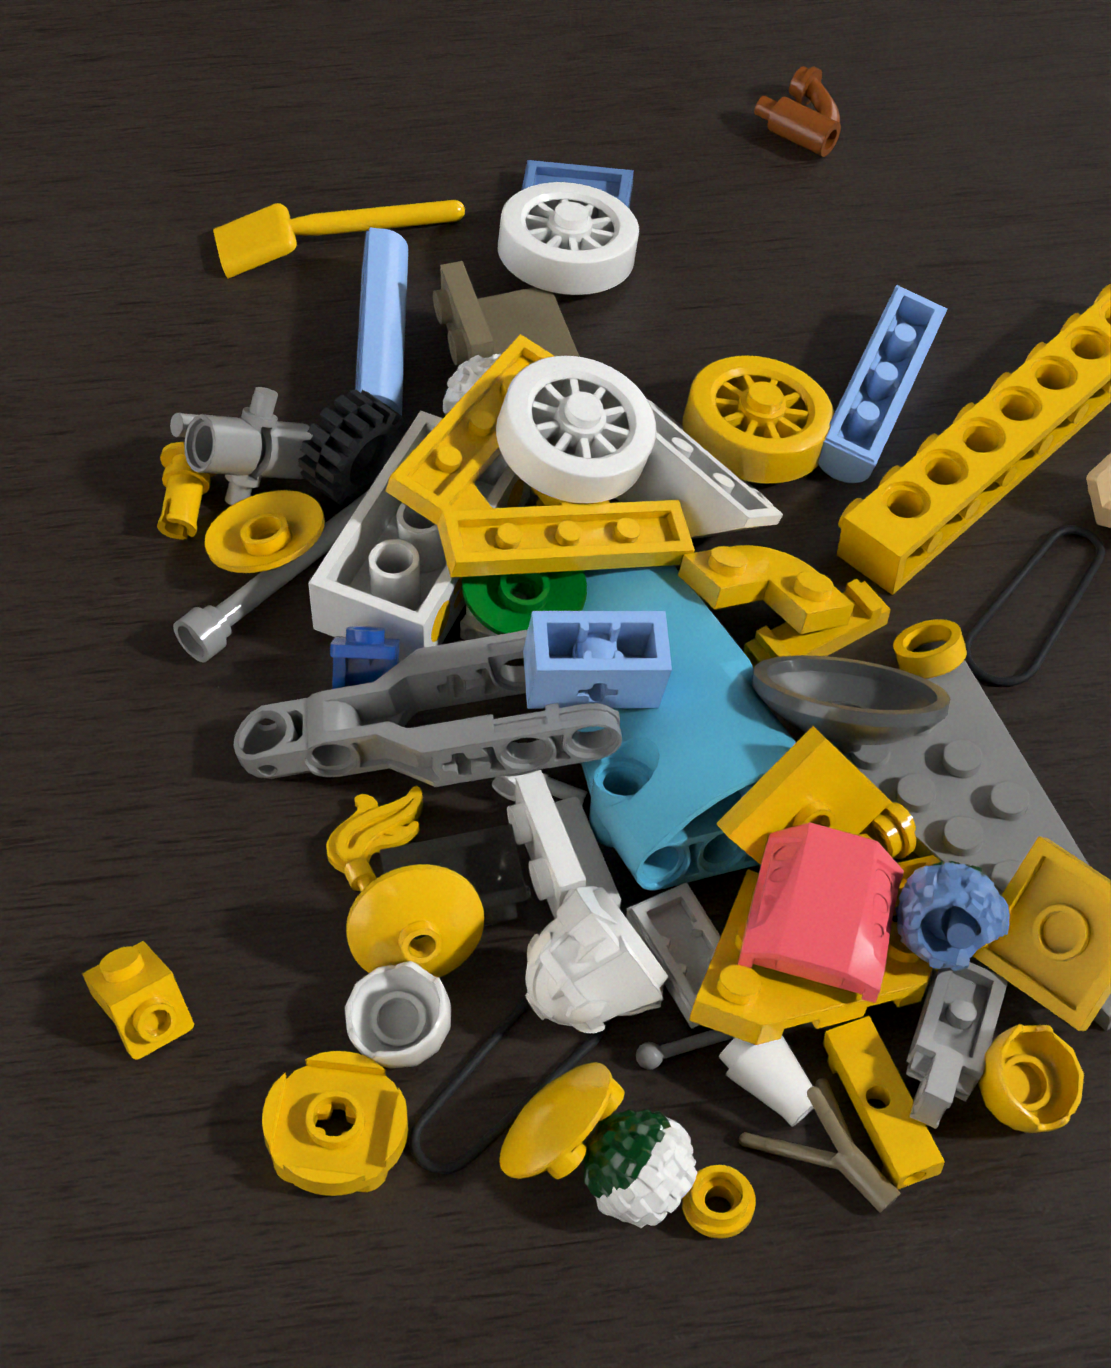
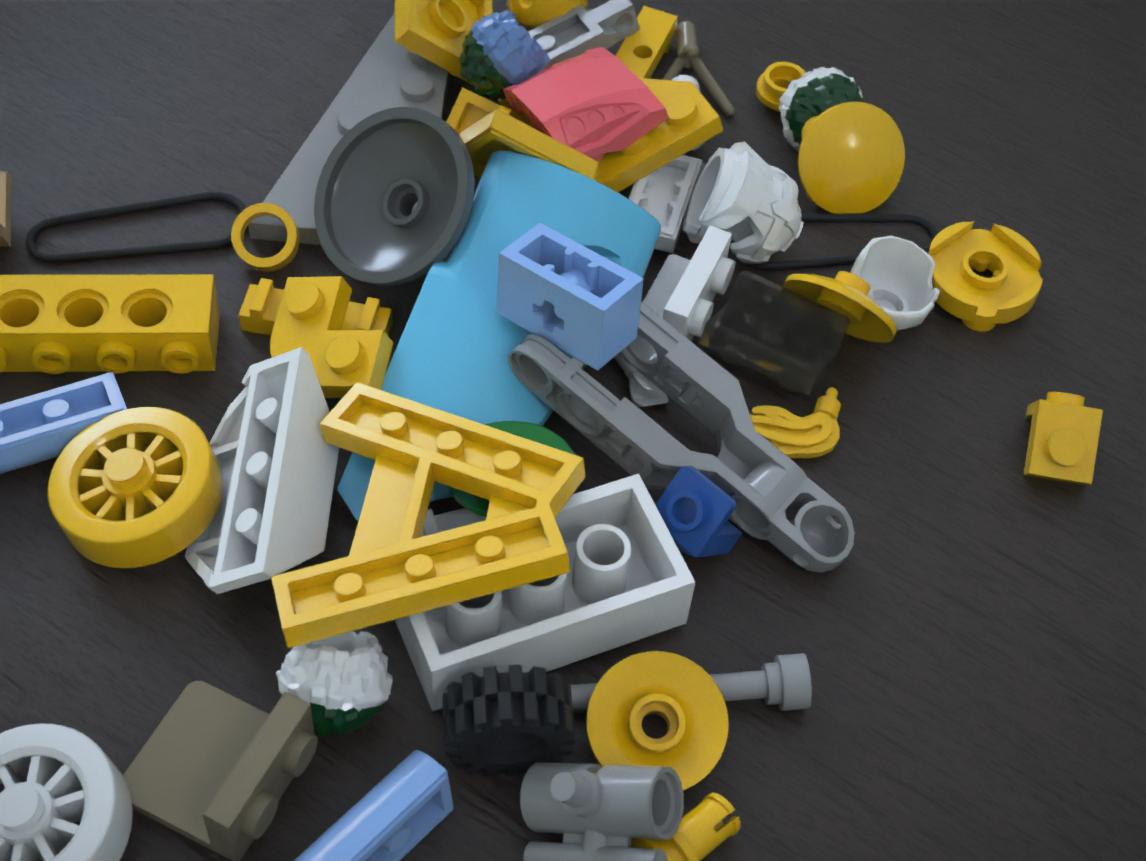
camera: 140 degrees left, 0 degrees up
(575, 429) = (354, 492): white wheel -> none

